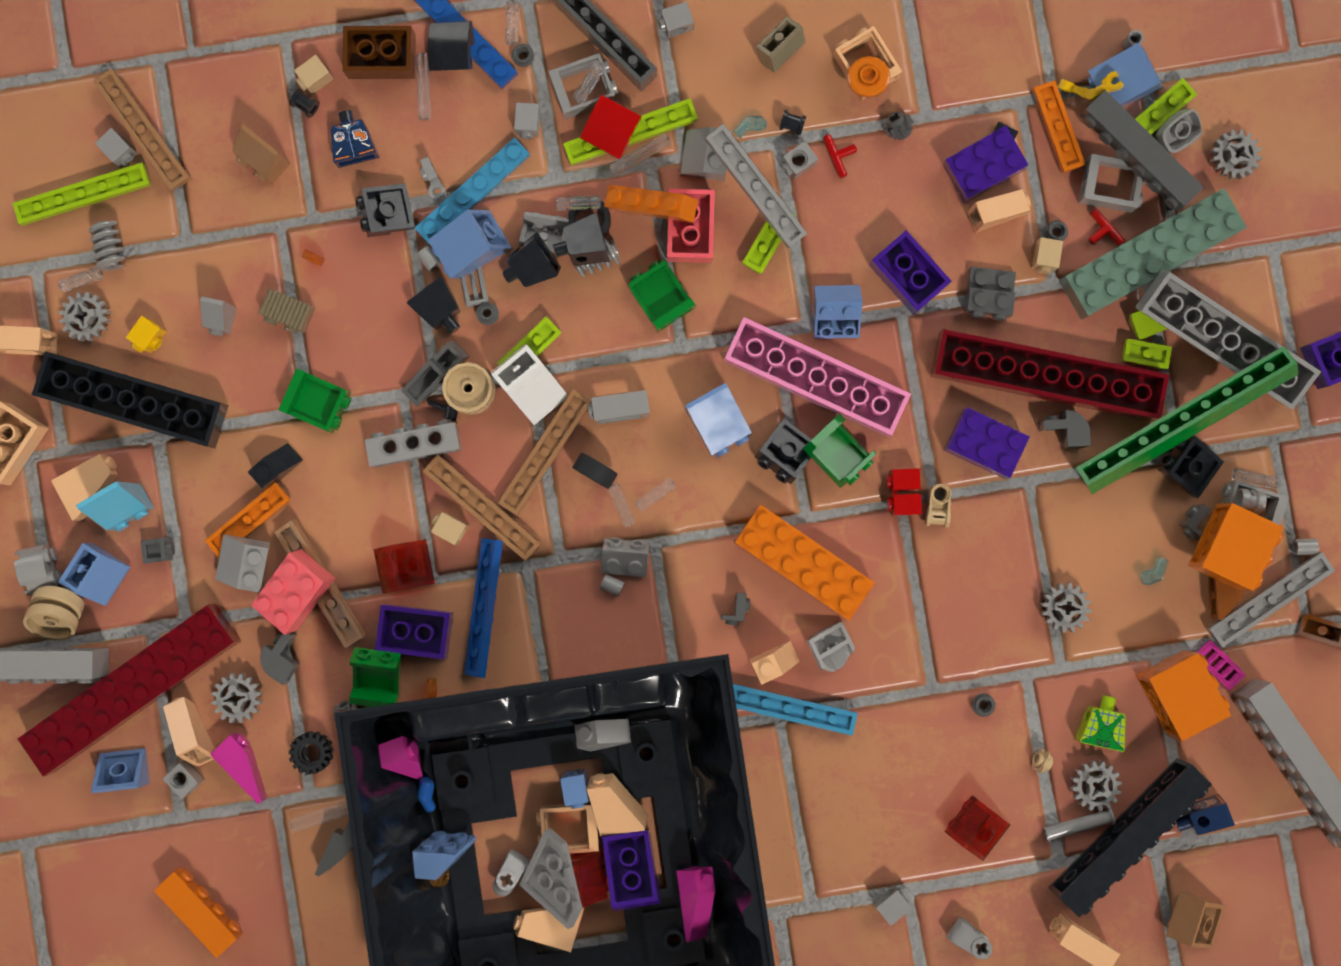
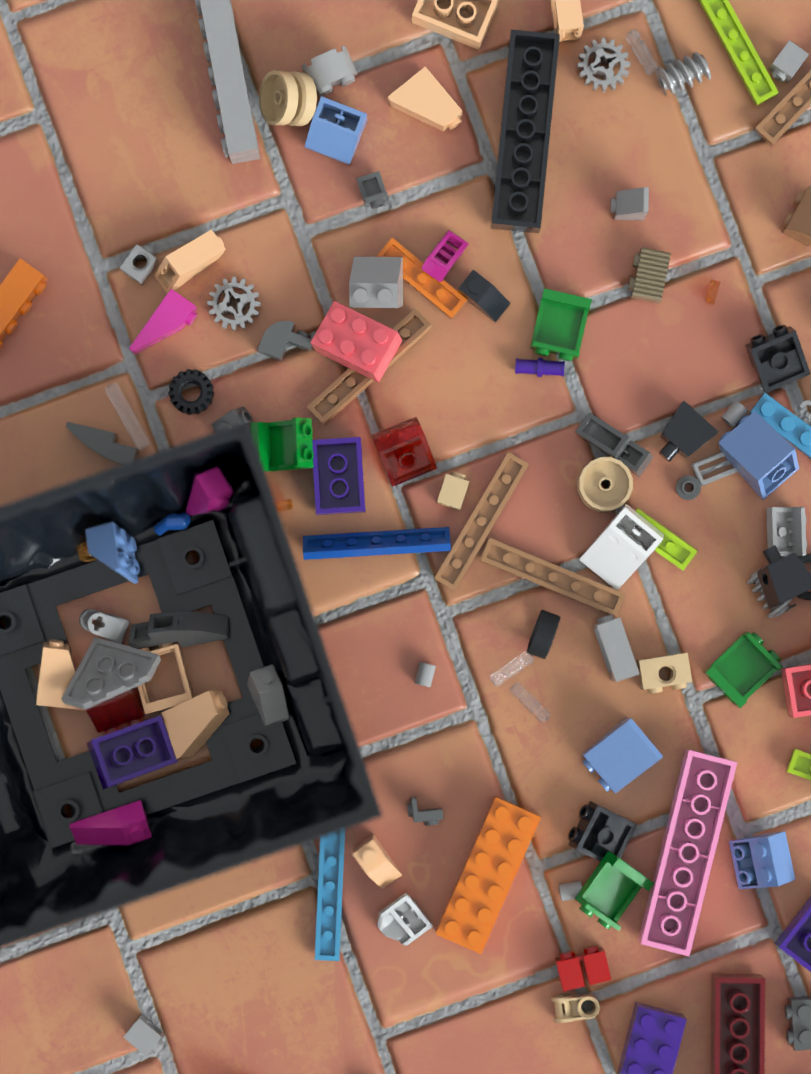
camera: 75 degrees right, 0 degrees up
(117, 505) = (411, 141): medium azure slope -> none
(121, 771) = (136, 198): medium blue slope -> none
(129, 689) = (222, 190): dark red brick -> none
(146, 335) = (595, 133): yellow brick -> none
(232, 496) = (436, 267): none -> dark pink slope
(351, 427) = (539, 367): none -> dark purple pin
(449, 443) = (542, 473): light grey brick -> none
(450, 413) = (575, 468): black hand -> none
(525, 799) = (182, 626): none -> dark grey slope
(531, 263) = (751, 525): black torso -> none
(574, 788) = (206, 677): medium blue brick -> none
(624, 557) = (457, 683): light grey bracket -> none
(650, 353) = (650, 668): none -> tan brick
(832, 490) = (569, 890): none -> light grey hinge

